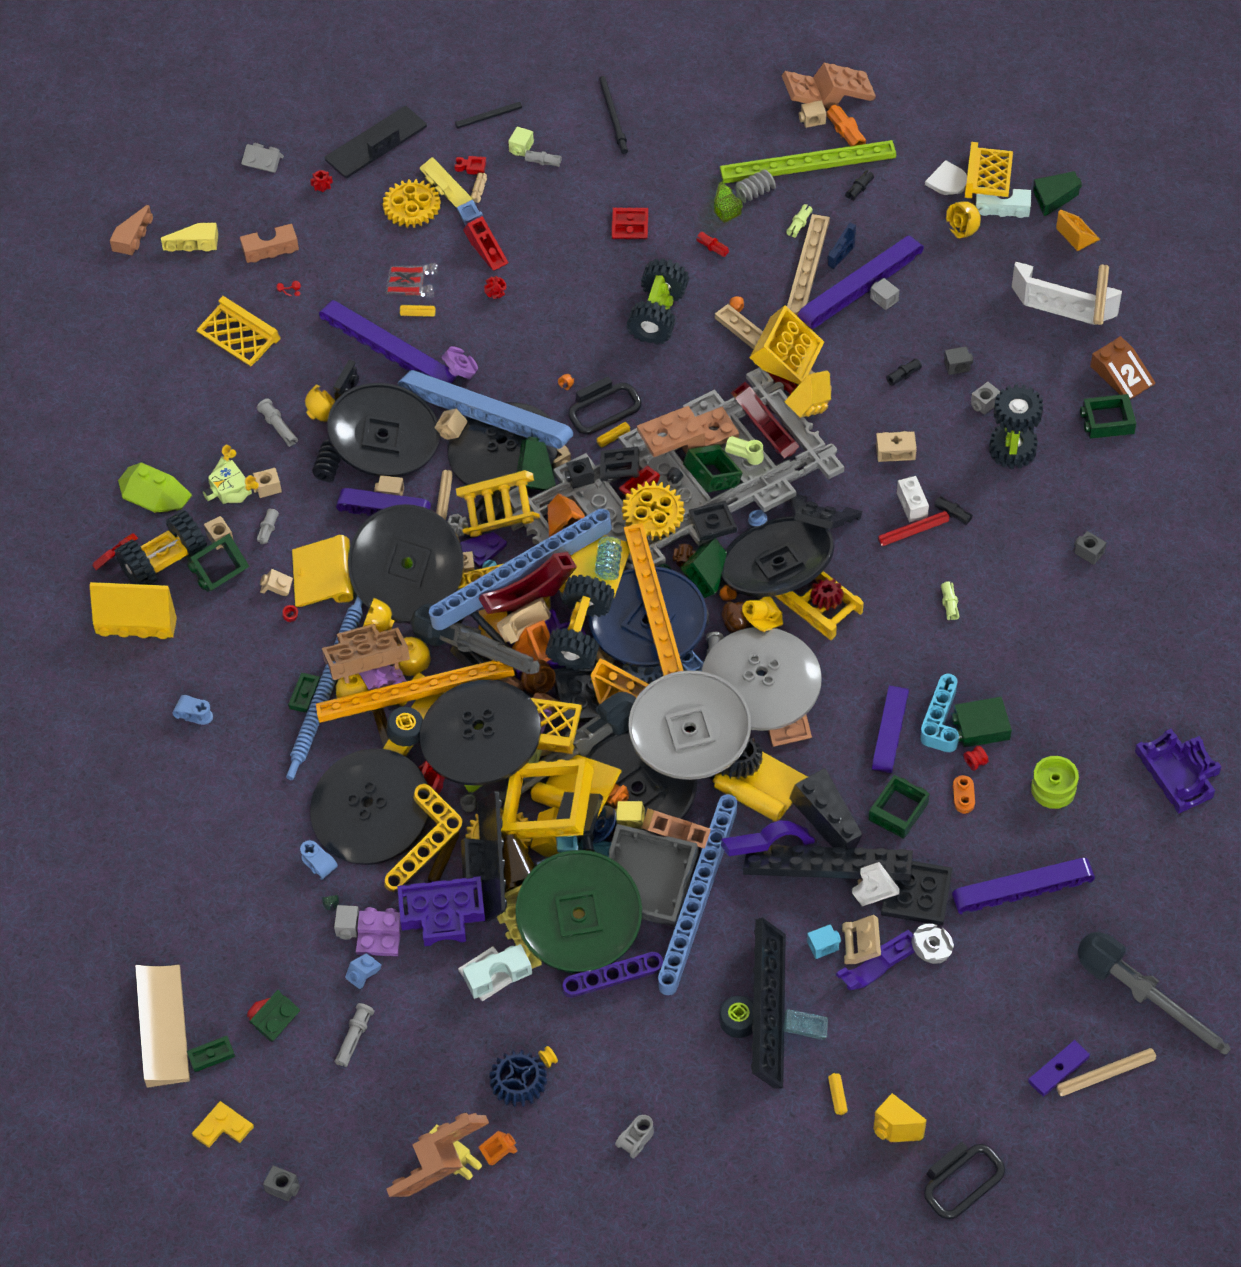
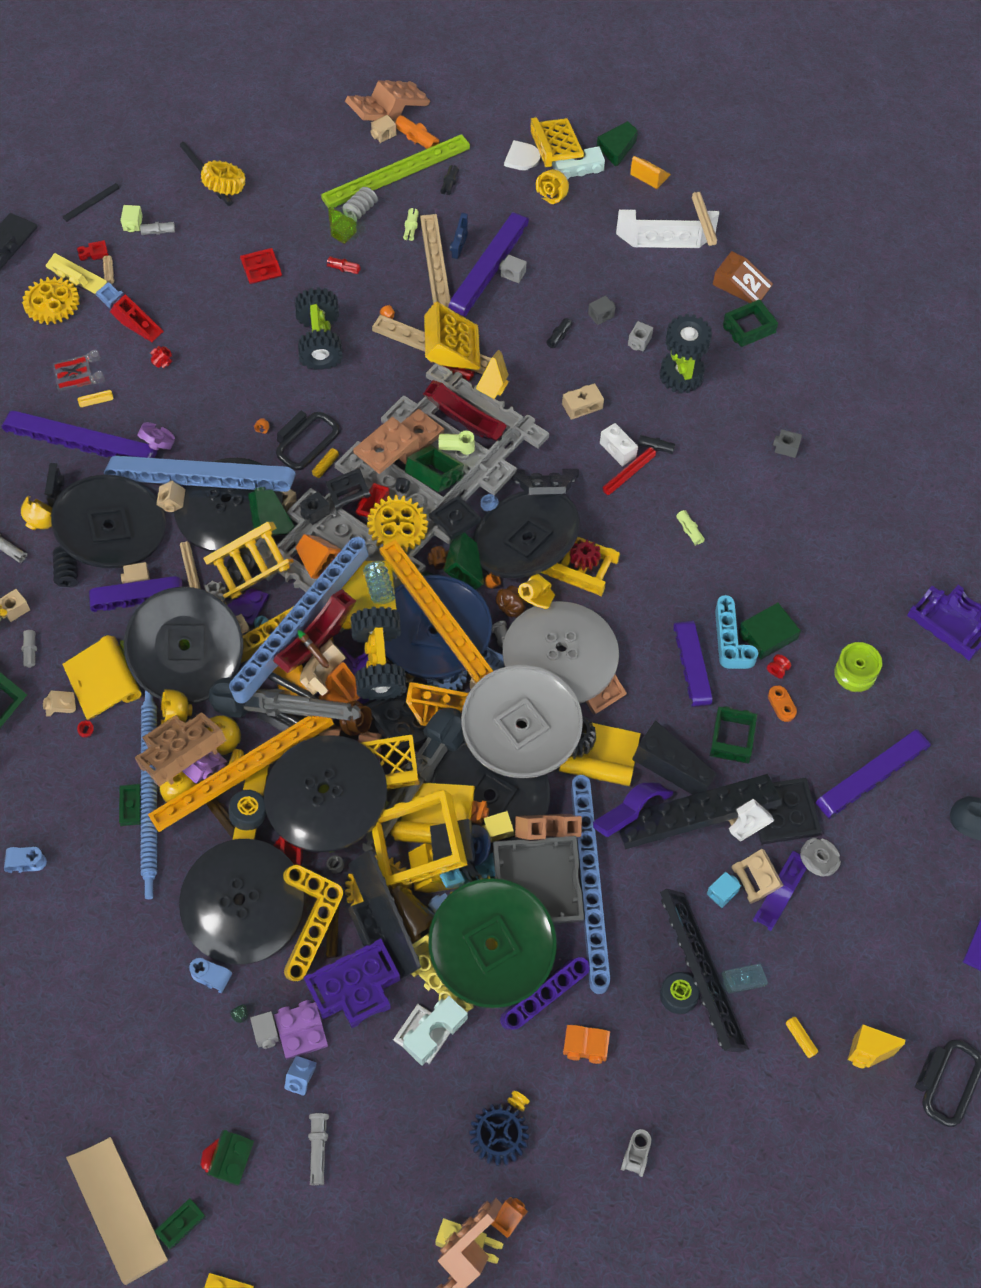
camera: 25 degrees left, 5 degrees up
(520, 599) = (313, 649): none -> reddish brown piece
(626, 123) = (223, 177): none -> yellow gear
(632, 1030) = (586, 1043): none -> orange brick

